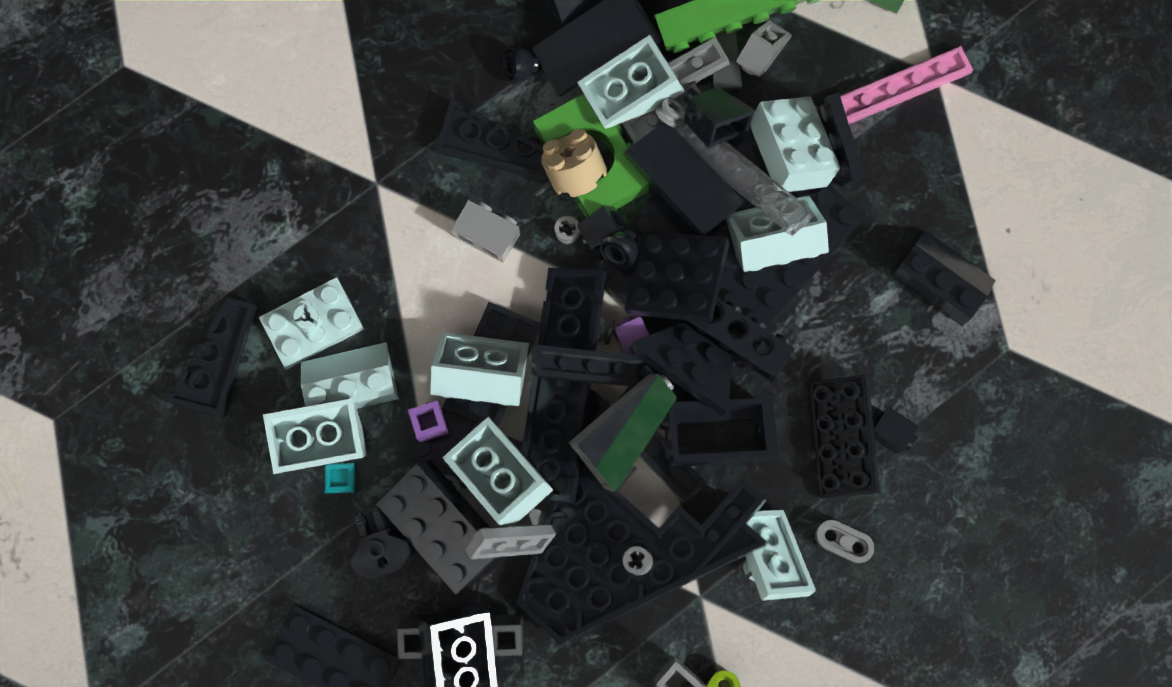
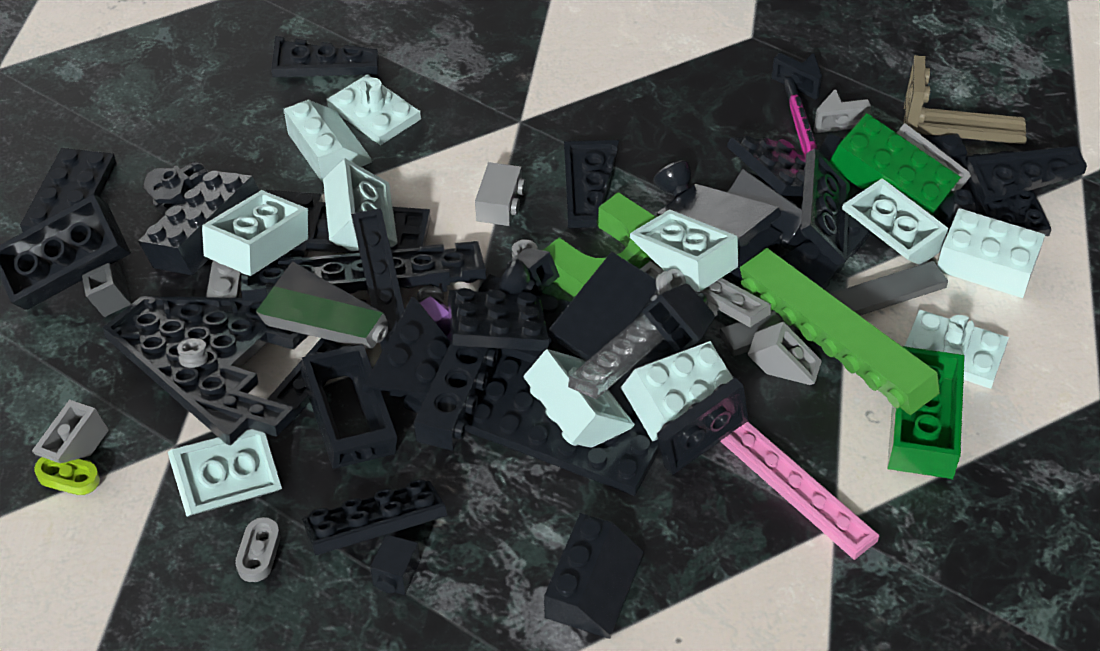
camera: 75 degrees right, 30 degrees down
(314, 435) = (265, 121): light aqua slope -> none
(340, 478) = (236, 159): teal tile -> none
(428, 421) = (296, 180): medium lavender brick -> none
(510, 541) = (191, 251): light grey plate -> none
(573, 163) = (586, 226): tan brick -> none

